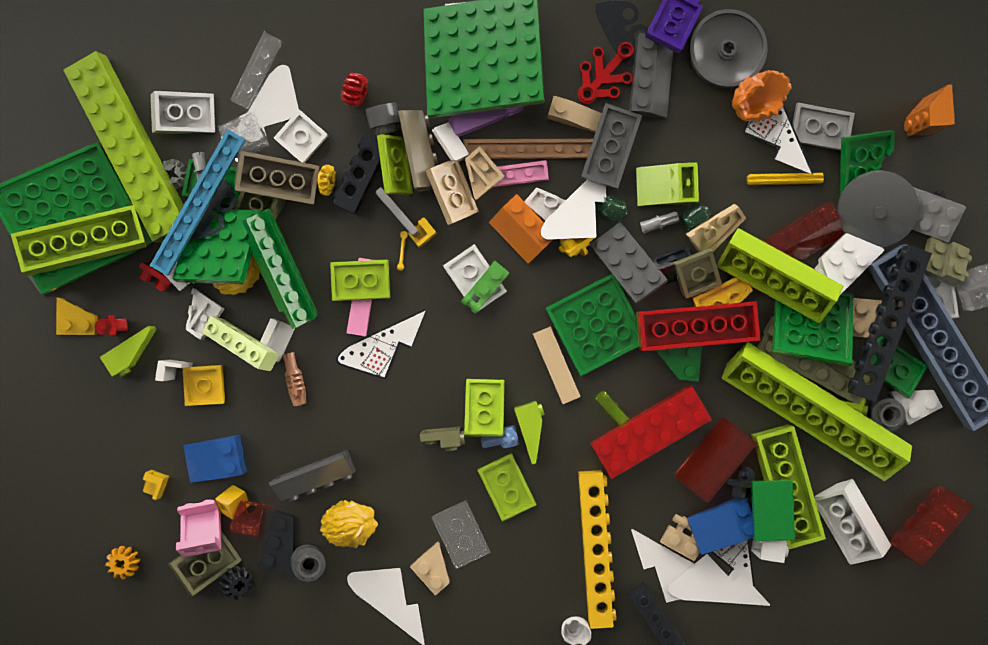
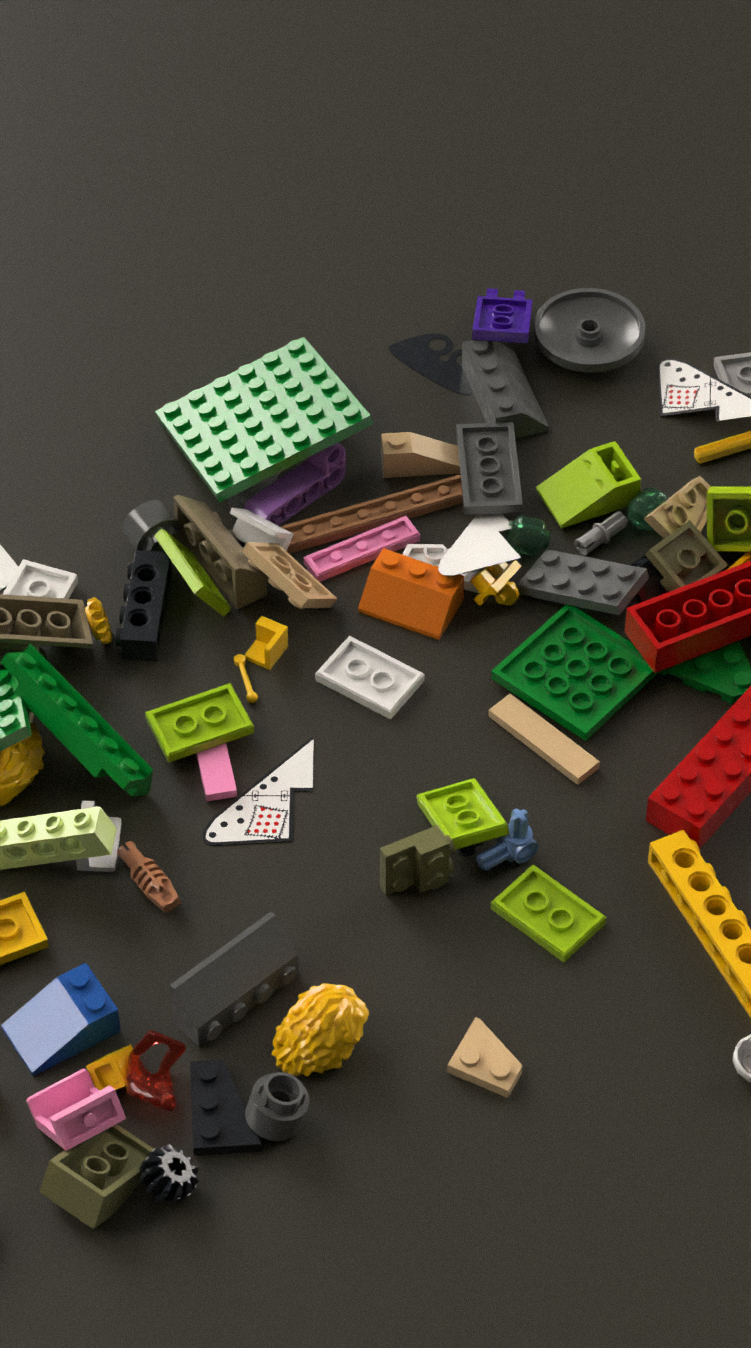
camera: 20 degrees left, 40 degrees down
(354, 89) = (96, 512): red gear -> none
(386, 593) = (428, 1125): white sticker -> none
(397, 212) = (220, 628): light grey tile -> none
(461, 534) = (508, 997): clear tile -> none
(482, 172) = (322, 546): tan wing -> none
(485, 286) = (390, 672): bright green plate -> none
(530, 423) = (545, 819): lime slope -> none
(604, 76) = (453, 377): red plant -> none
(611, 408) = (650, 760): clear neon green axle -> none
(761, 96) = (659, 358): orange hair -> none

